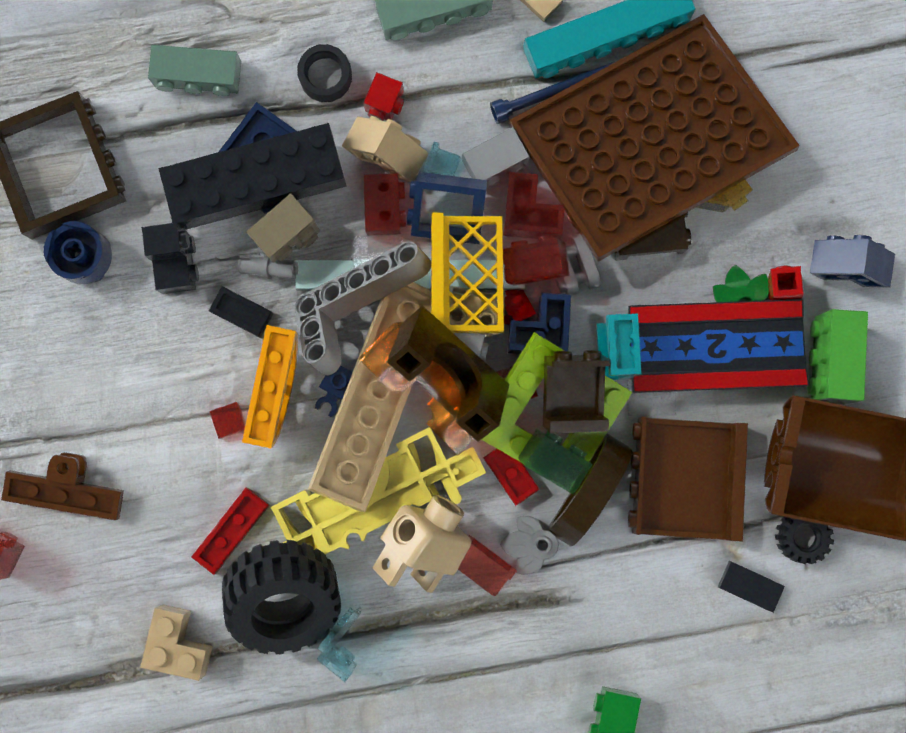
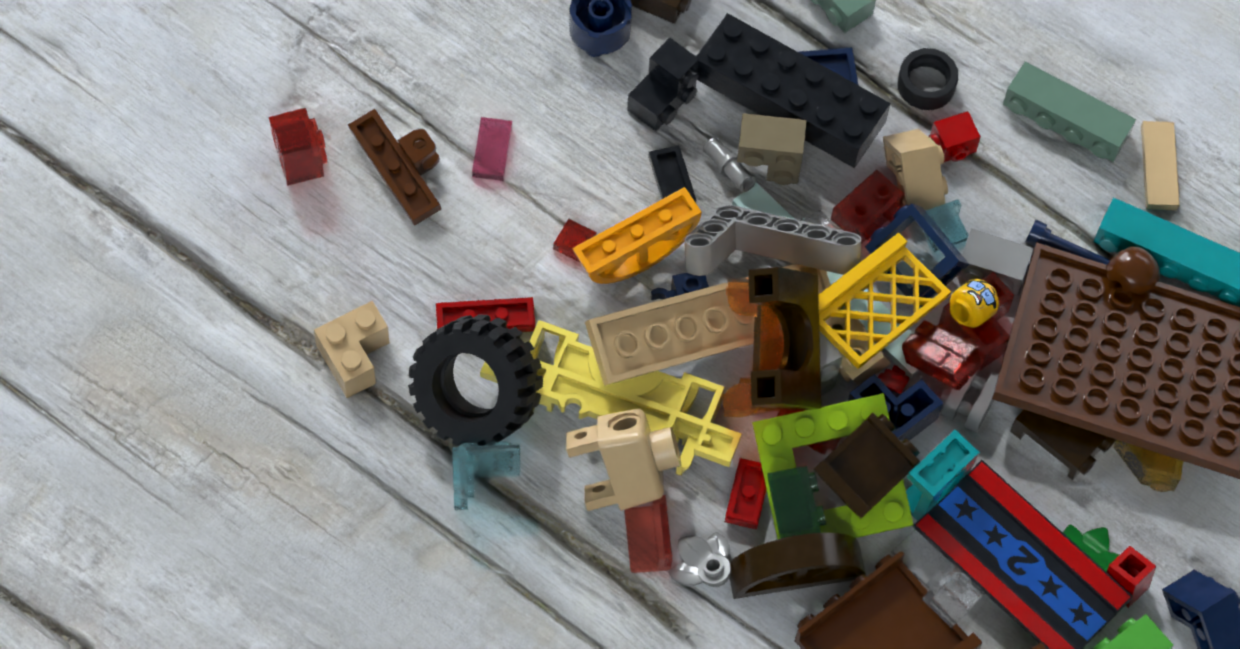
camera: 45 degrees right, 20 degrees down
(109, 413) = (492, 149): none -> clear pink tile
(525, 209) = (974, 303): none -> yellow head
(587, 77) = (1134, 270): none -> reddish brown hair
(698, 410) = (952, 595): none -> clear brick

